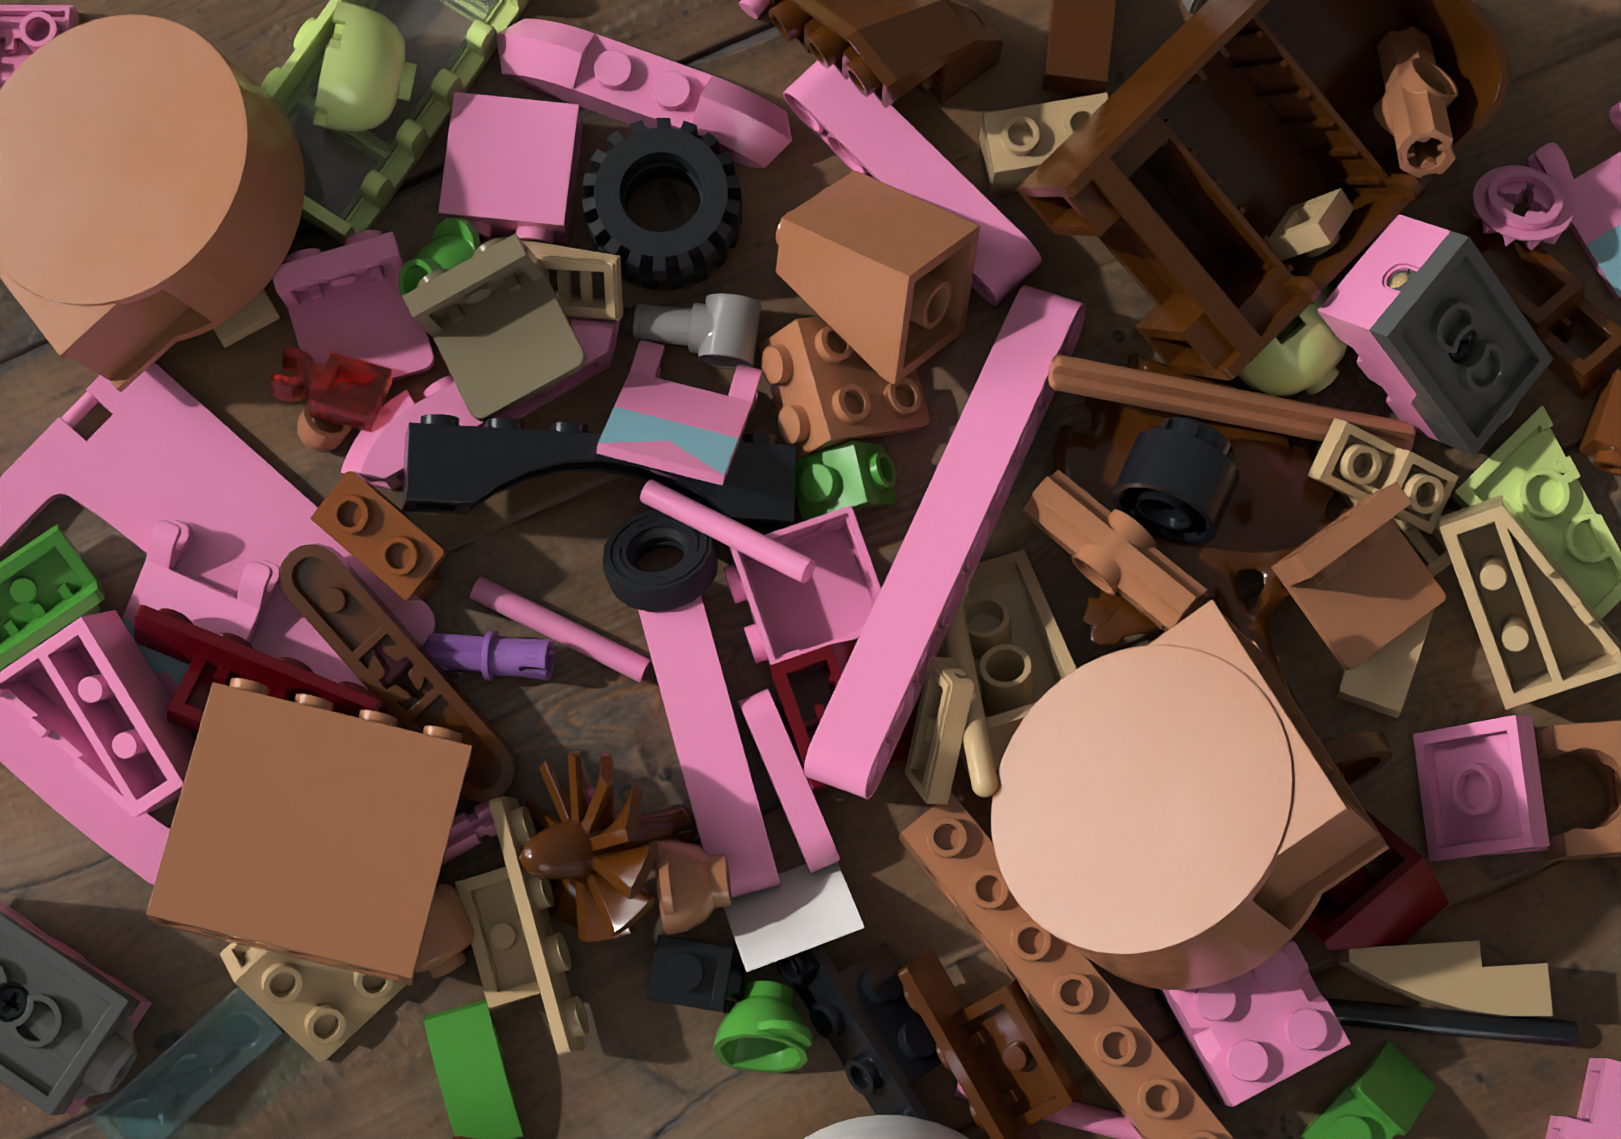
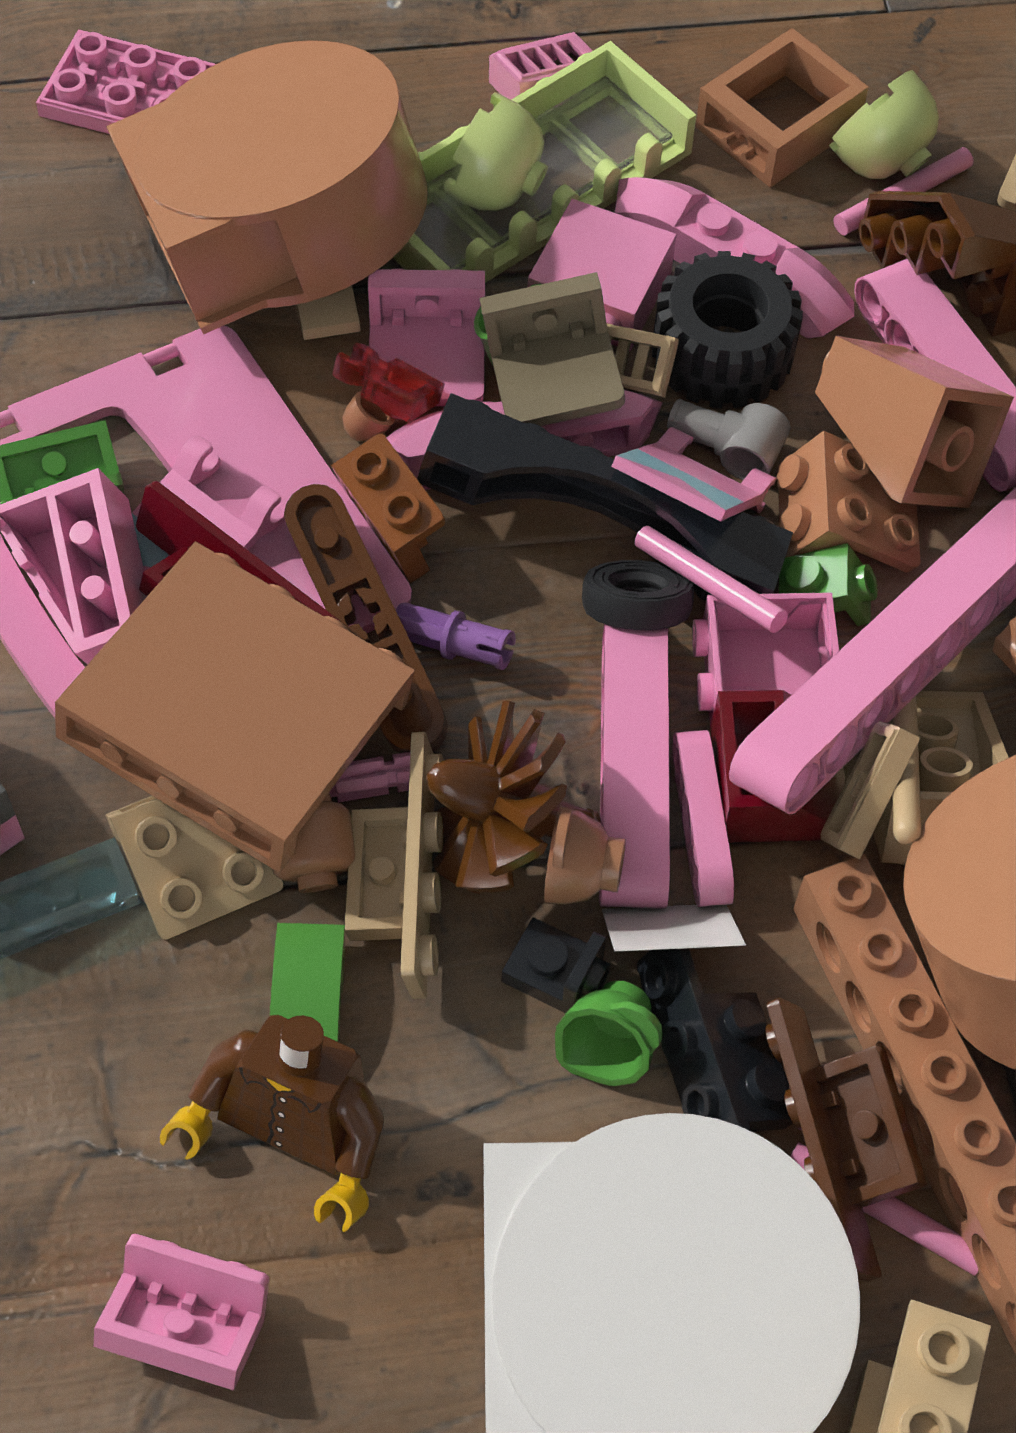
camera: 15 degrees right, 20 degrees down
(560, 629) = (526, 637): bright pink bar -> none

